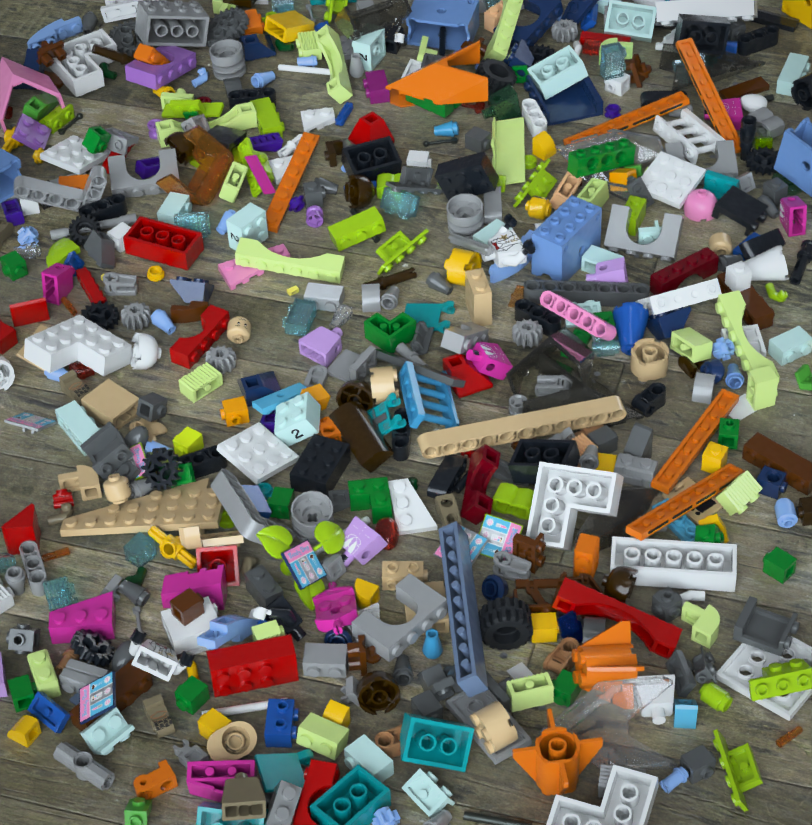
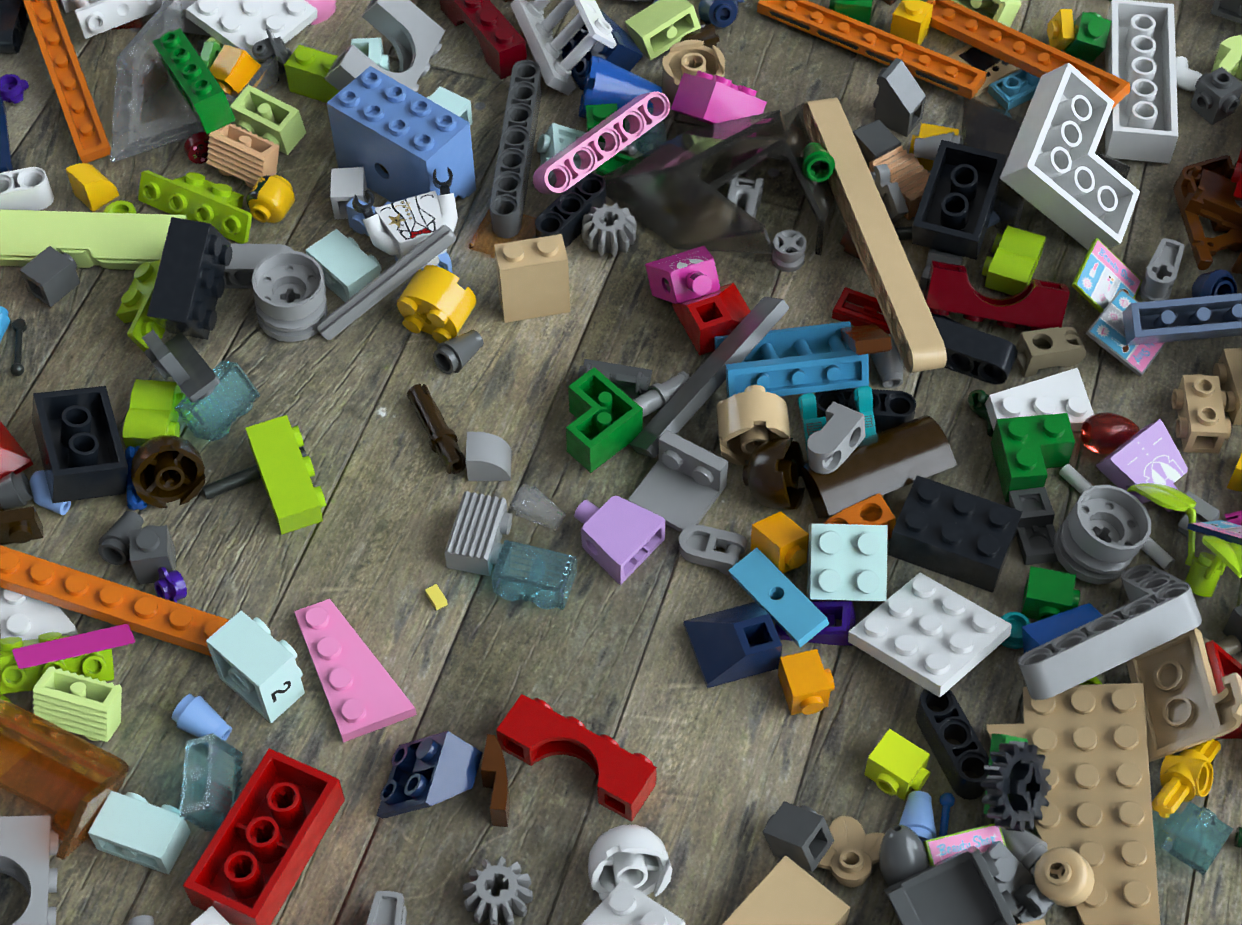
camera: 90 degrees left, 10 degrees up
(155, 273) = (351, 864): yellow plate -> none
(162, 320) = (519, 835): light blue cone -> none
(200, 382) = (717, 750): yellowish green brick -> none
(221, 358) = (651, 714): light grey gear -> none
(238, 329) = (567, 681): tan head -> none
(311, 219) = (219, 553): medium lavender wheel -> none
(324, 267) = (347, 647): yellowish green arch -> none
(366, 406) = (836, 440): none -> light grey leg
(390, 298) = (491, 422): light grey cone -> none
(396, 247) = (354, 411): lime bracket -> none
(419, 159) = (87, 369): white brick -> none
(429, 413) = (866, 339): none -> reddish brown tile
(431, 314) = (540, 381): teal flag -> none
(465, 338) = (657, 298): light grey arch -> none
(530, 550) = (1144, 234): reddish brown bracket -> none
(565, 397) = (817, 163): none -> green cone
(586, 555) = (1149, 166): orange brick -> none
(610, 271) = (485, 116): lavender torso -> none
(612, 361) = (715, 99): none -> dark pink piece
(619, 583) = (1203, 130): dark brown cylinder -> none
(636, 469) = (944, 102): light grey brick -> none
(650, 399) = (779, 85): black piece -> none
(703, 388) = (751, 26): light grey brick -> none

